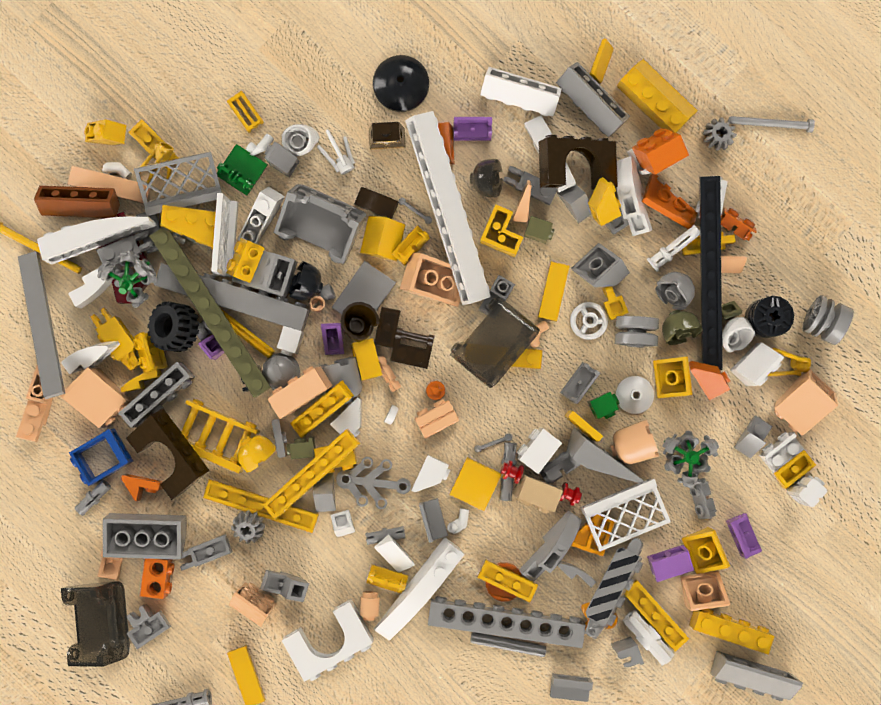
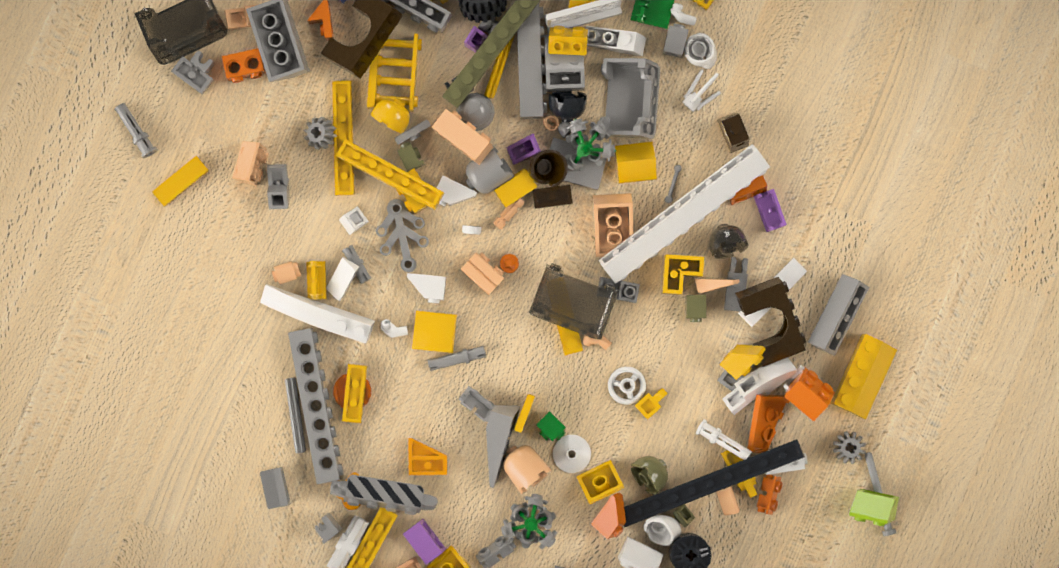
camera: 70 degrees right, 0 degrees up
(207, 551) = (283, 103): light grey hinge -> none
(290, 341) = (507, 110): white brick -> none
(311, 662) = (215, 236): white arch -> none
(322, 409) = (453, 162): yellow tile -> none
(324, 494) = (375, 193): light grey slope -> none
(352, 279) = (584, 147): none -> light grey plant
(376, 203) = (667, 144): dark brown slope -> none
(401, 95) = (787, 140): black dish -> none
(409, 354) = (534, 227): dark brown plate -> none
(411, 244) = (638, 191): yellow hinge -> none
(433, 519) = (387, 303): light grey panel -> none
(508, 437) = (489, 347): light grey hinge -> none
(520, 91) = (821, 243): white brick -> none
(537, 492) = (448, 392): tan brick -> none
(538, 449) = (486, 378): white brick -> none
(553, 291) = (642, 342): yellow tile -> none
(556, 545) = (403, 427): light grey slope -> none
(572, 570) = (384, 449): light grey slope -> none
(576, 202) = (735, 333): light grey slope -> none
(580, 383) = (564, 396): light grey hinge -> none
(601, 60) = (879, 310): yellow slope -> none
(601, 267) = (680, 378): light grey slope -> none
(624, 497) = (464, 468): white fence -> none
(636, 331) = (631, 432): light grey wheel -> none
(676, 289) = (685, 457): light grey cylinder -> none
(786, 129) = (874, 506): none -> lime slope

